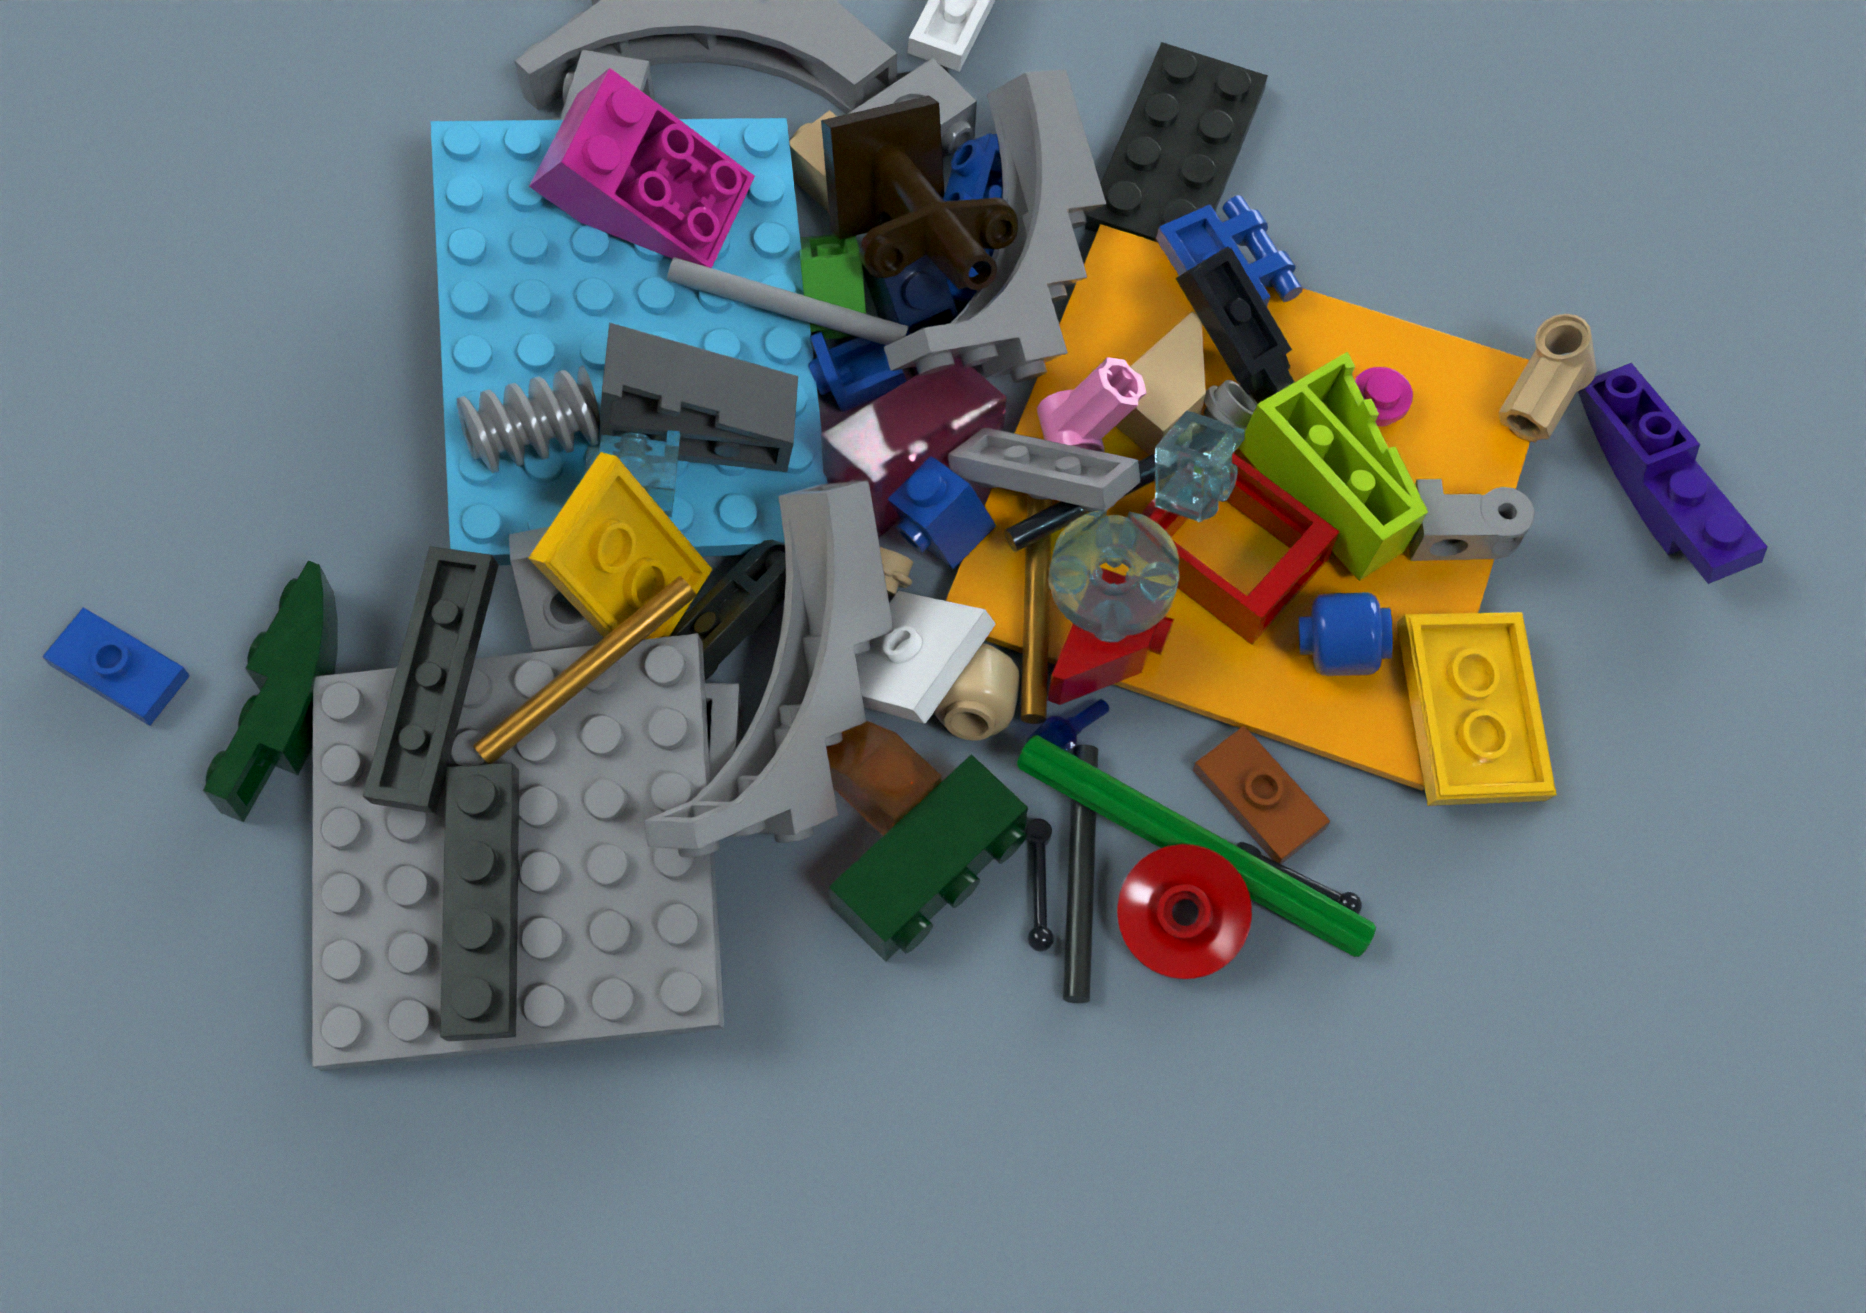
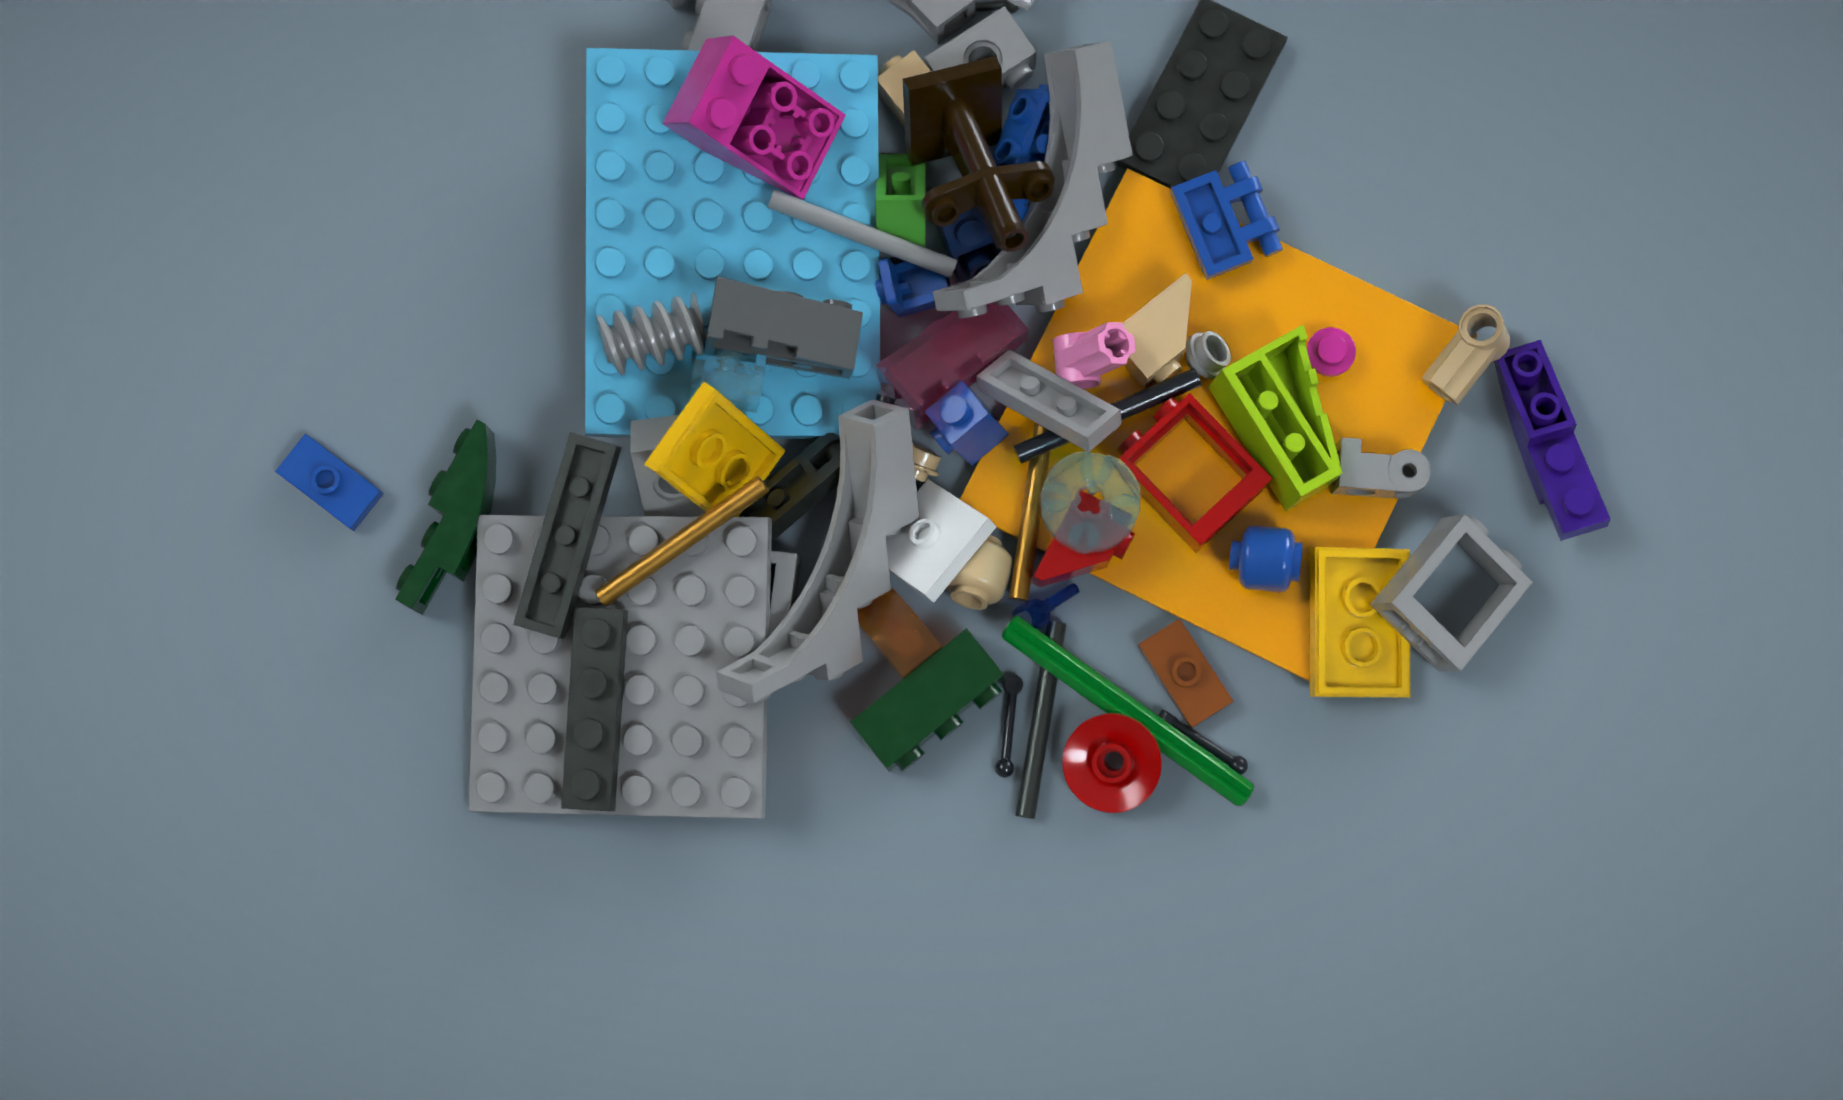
camera: 15 degrees right, 15 degrees up
(1196, 466) = (1169, 430): clear light blue brick -> none
(1239, 324) = (1222, 288): black hinge -> none
(1535, 677) = (1418, 626): none -> light grey window

